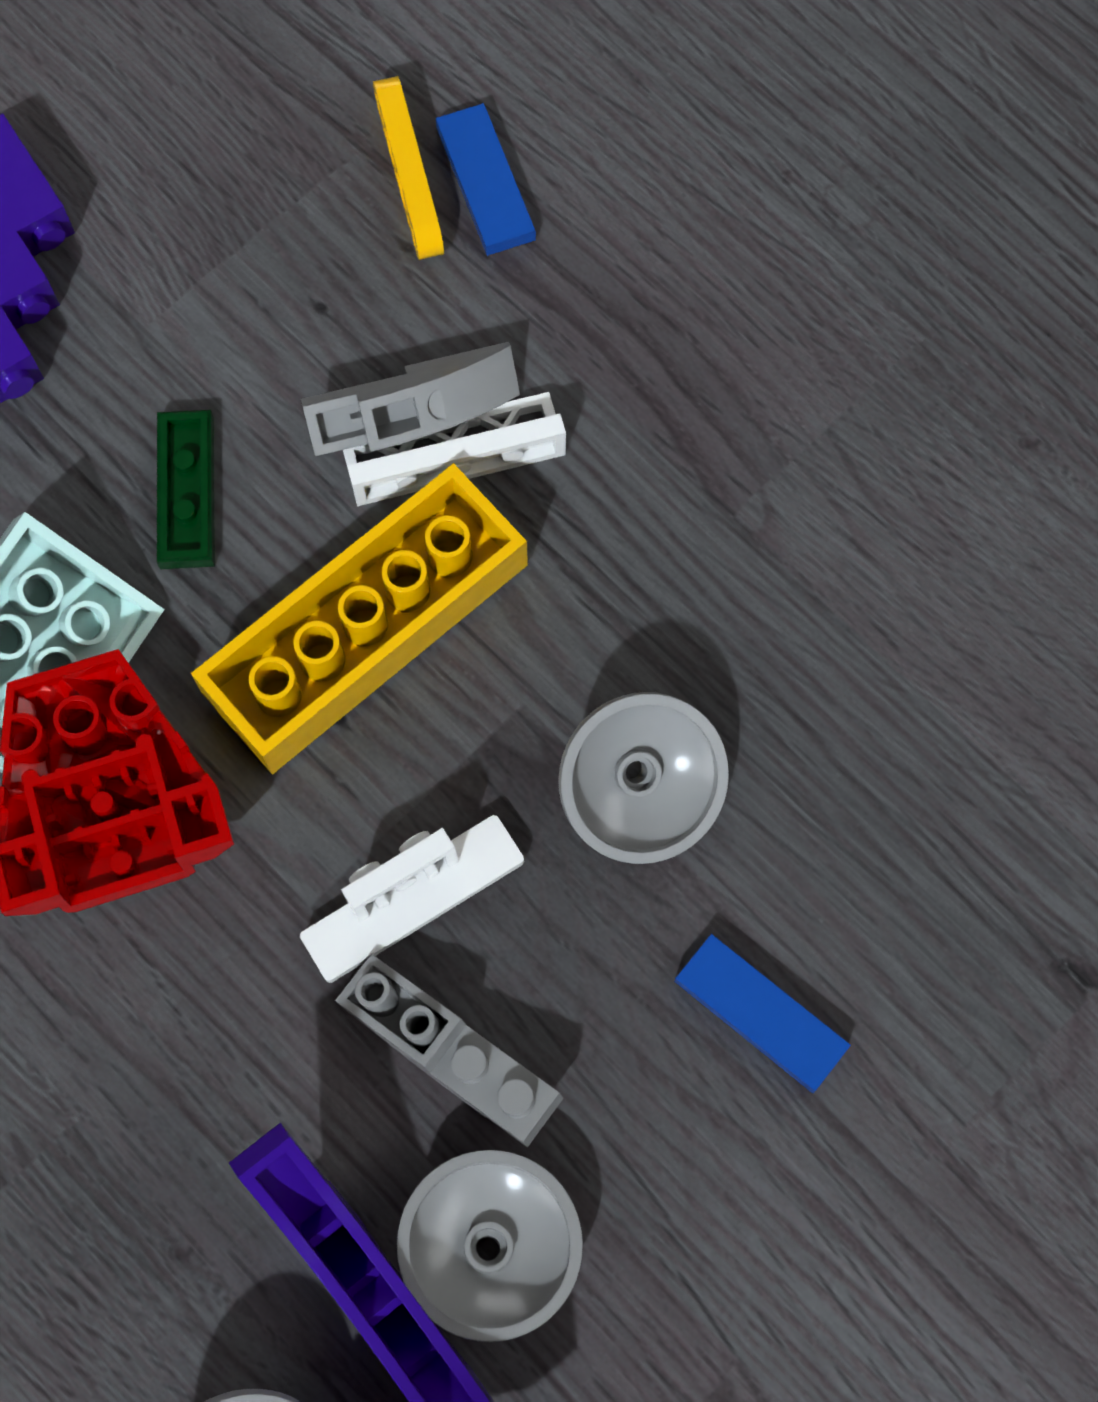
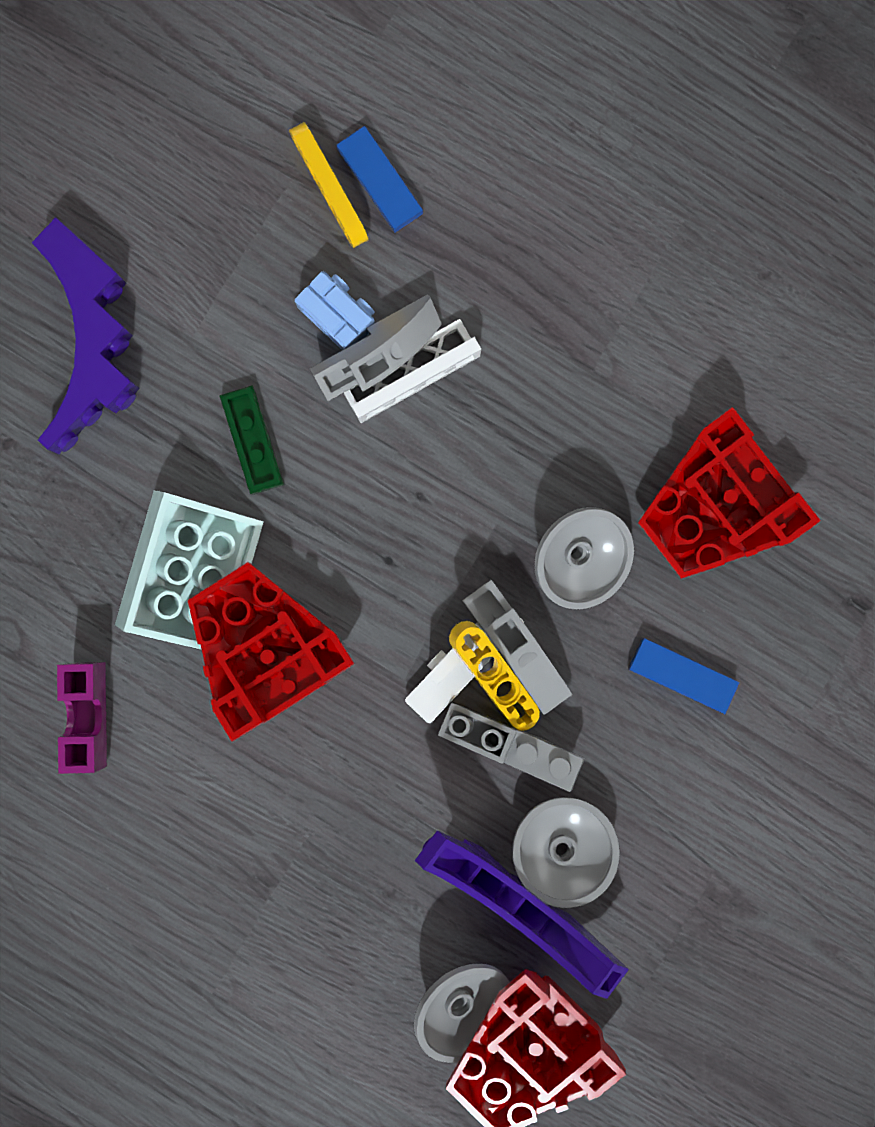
camera: 15 degrees left, 15 degrees up
(362, 331) = (335, 310): none -> light blue brick
(362, 618) = (388, 499): yellow brick -> none
(456, 920) = (495, 676): none -> yellow beam
(503, 894) = (517, 647): none -> light grey slope
(885, 746) = (724, 502): none -> red wedge

